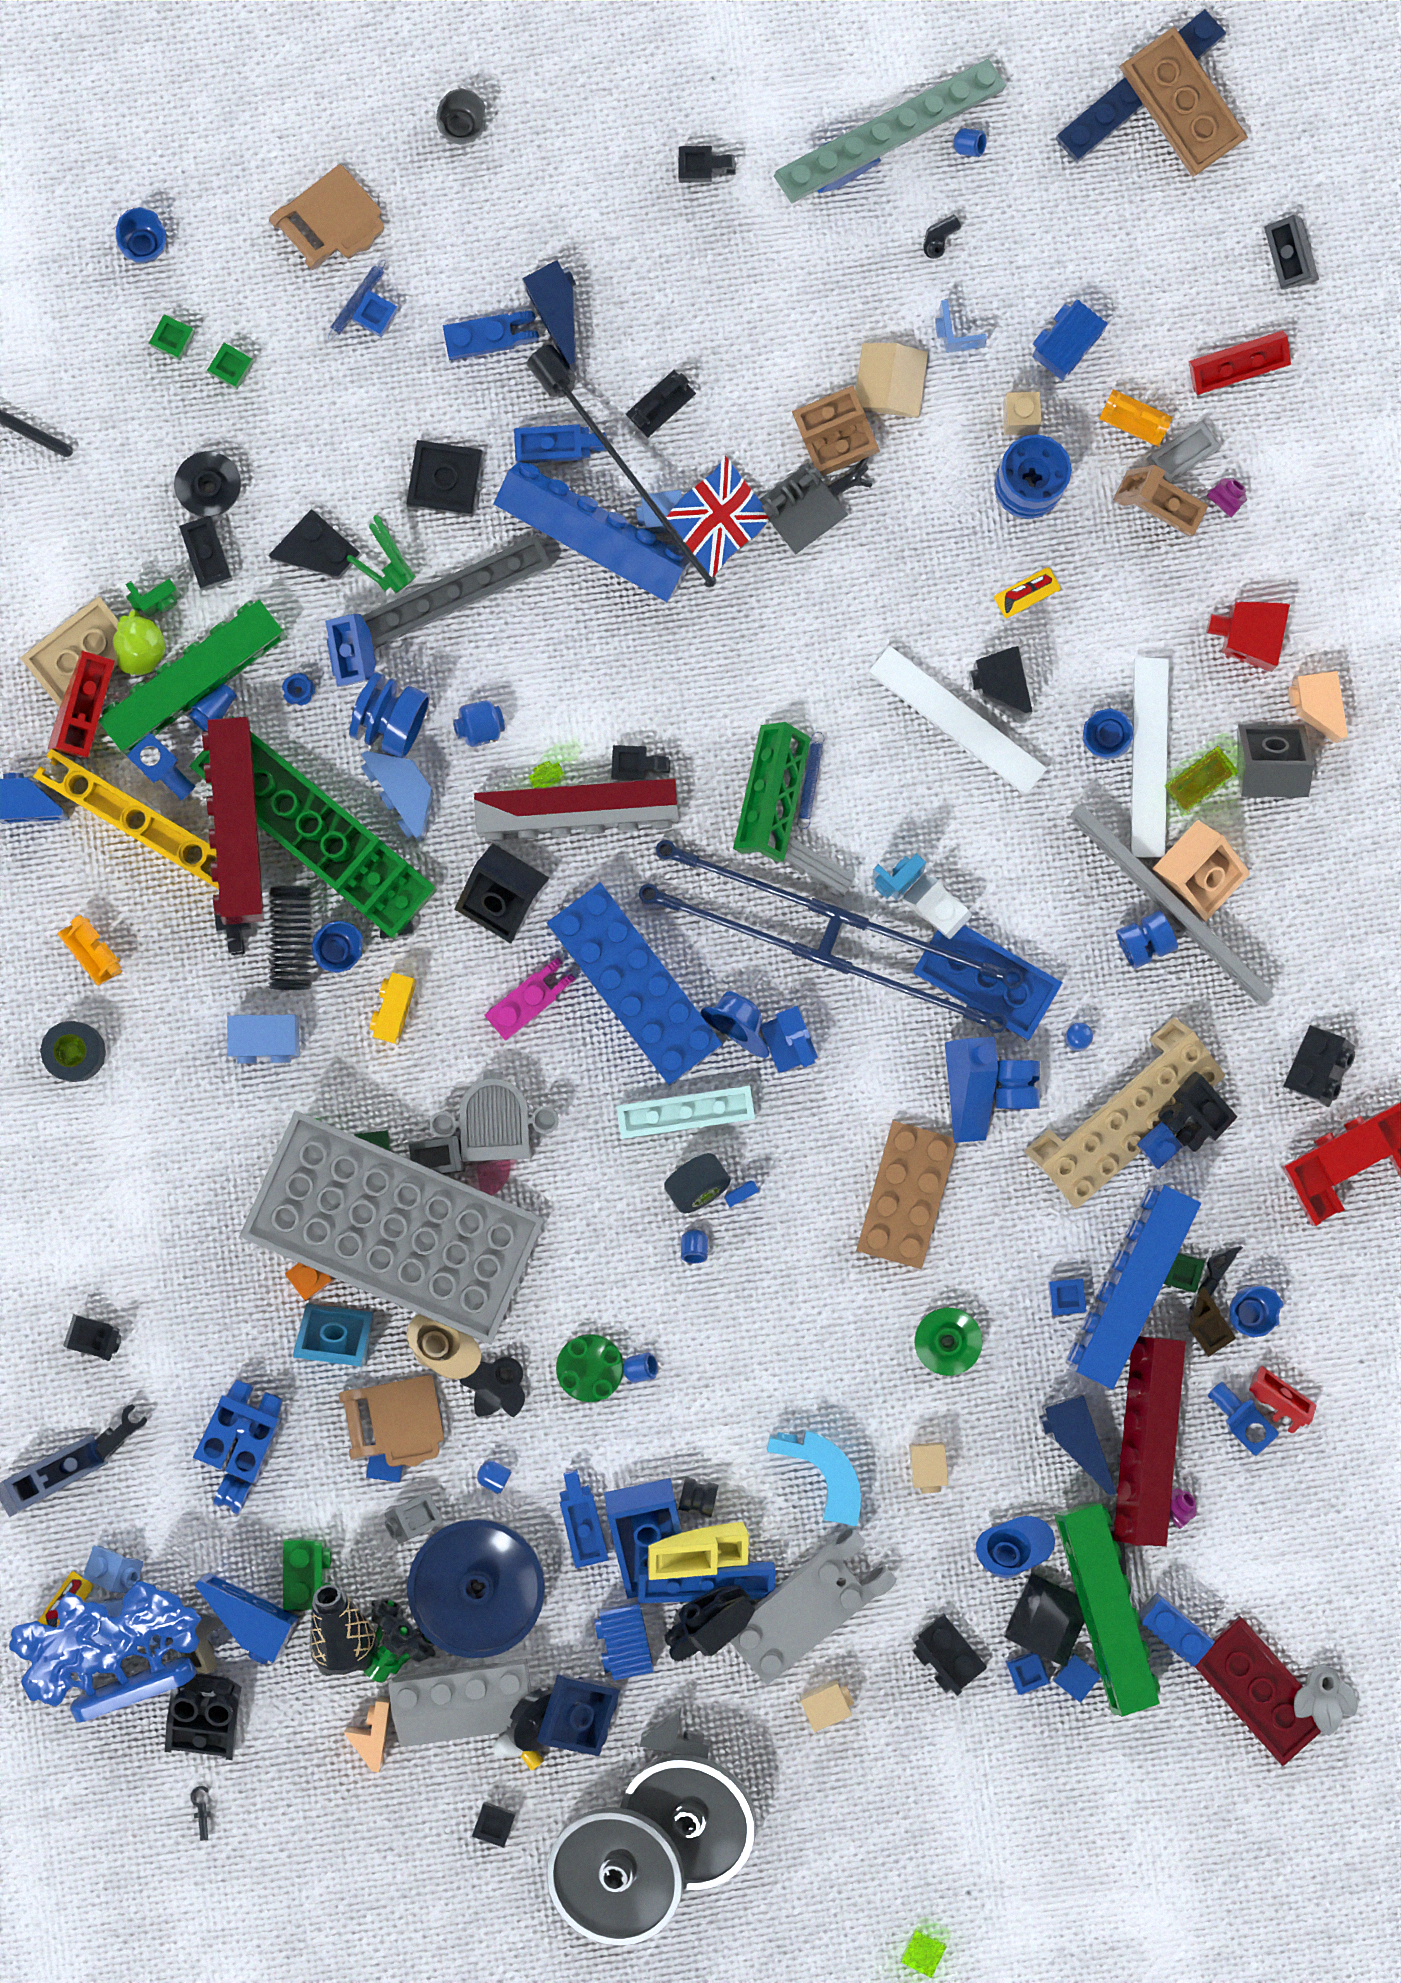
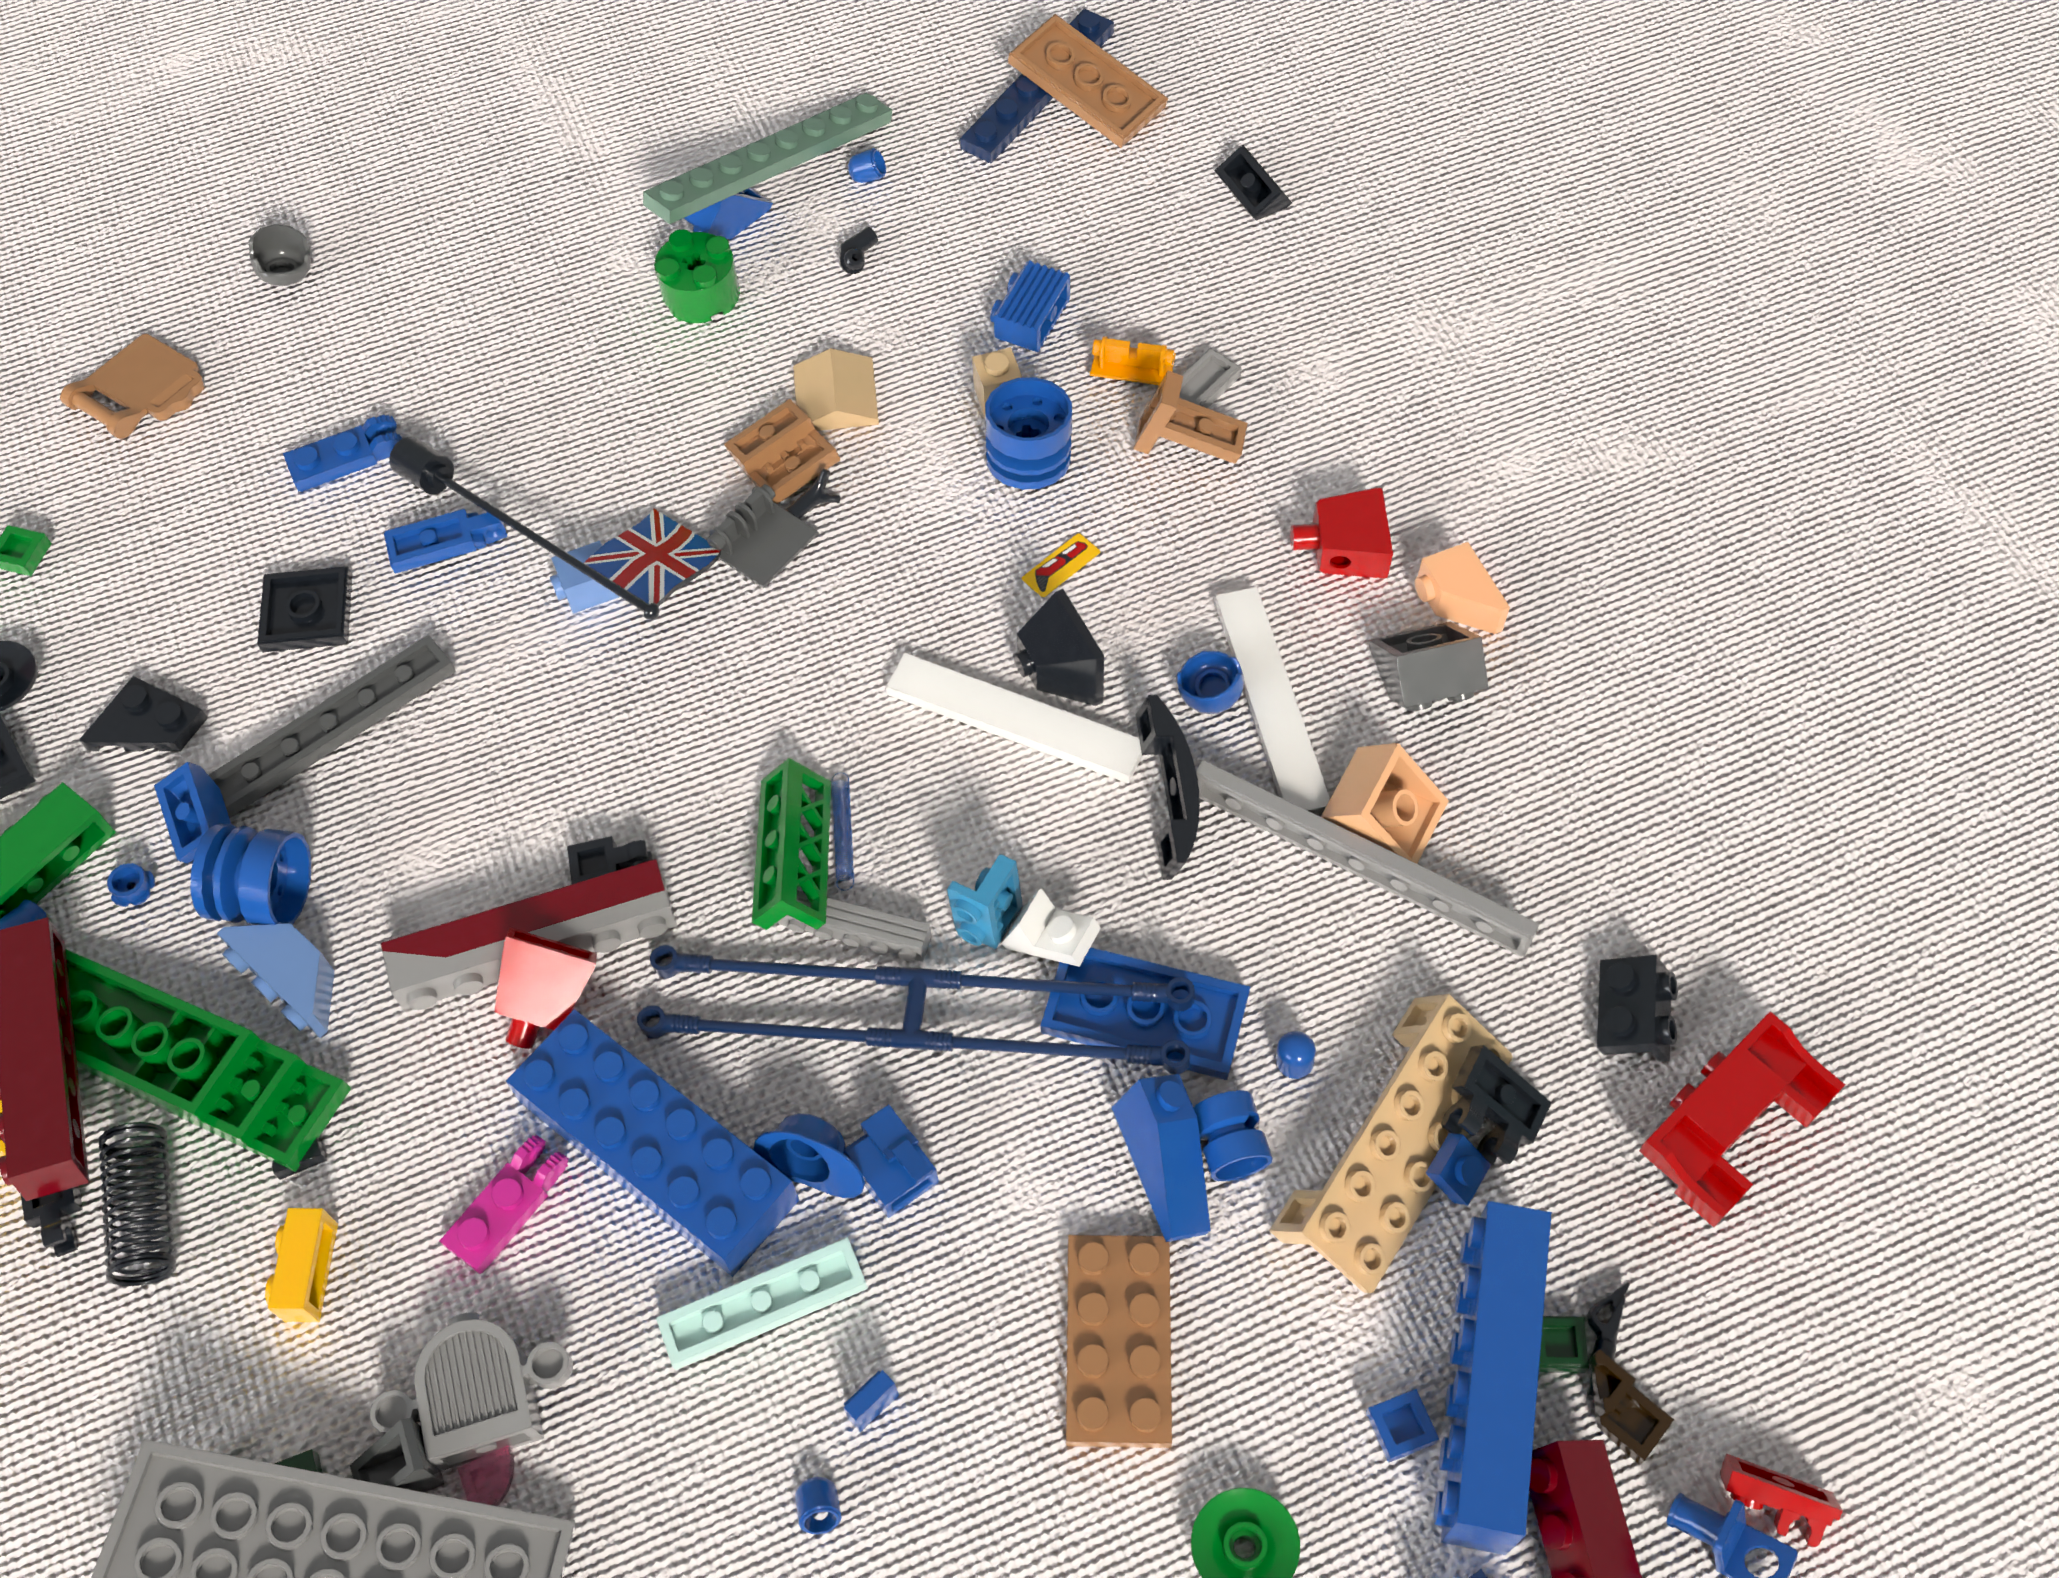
camera: 15 degrees left, 25 degrees down
(263, 1036) = (105, 1357): medium blue brick -> none
(337, 946) = (207, 1196): blue hair -> none
(352, 309) = (176, 458): blue piece -> none
(374, 313) = (197, 460): blue plate -> none
(397, 572) = (248, 716): green plant -> none
(479, 723) = (382, 864): blue head -> none
(501, 893) = (440, 1068): black slope -> none
(546, 775) = (482, 898): clear neon green plate -> none
(553, 299) = (413, 399): dark blue slope -> none
(579, 853) = (539, 984): none -> torso
(592, 530) = (499, 612): blue brick -> none
(661, 403) = (564, 472): black hinge -> none
(697, 1183) = (798, 1400): black wheel -> none
(698, 164) = (566, 243): black plate -> none
(811, 251) = (697, 276): none -> green brick
(944, 331) = (896, 334): medium blue bracket -> none
(1061, 814) = (1163, 737): none -> black slope
(1148, 939) = (1340, 909): blue wheel -> none
(1201, 780) = (1347, 707): clear neon green slope -> none
(1228, 495) = (1267, 412): magenta plate -> none
(1240, 362) = (1233, 284): red plate -> none
(1255, 1310) = (1686, 1367): blue hair -> none

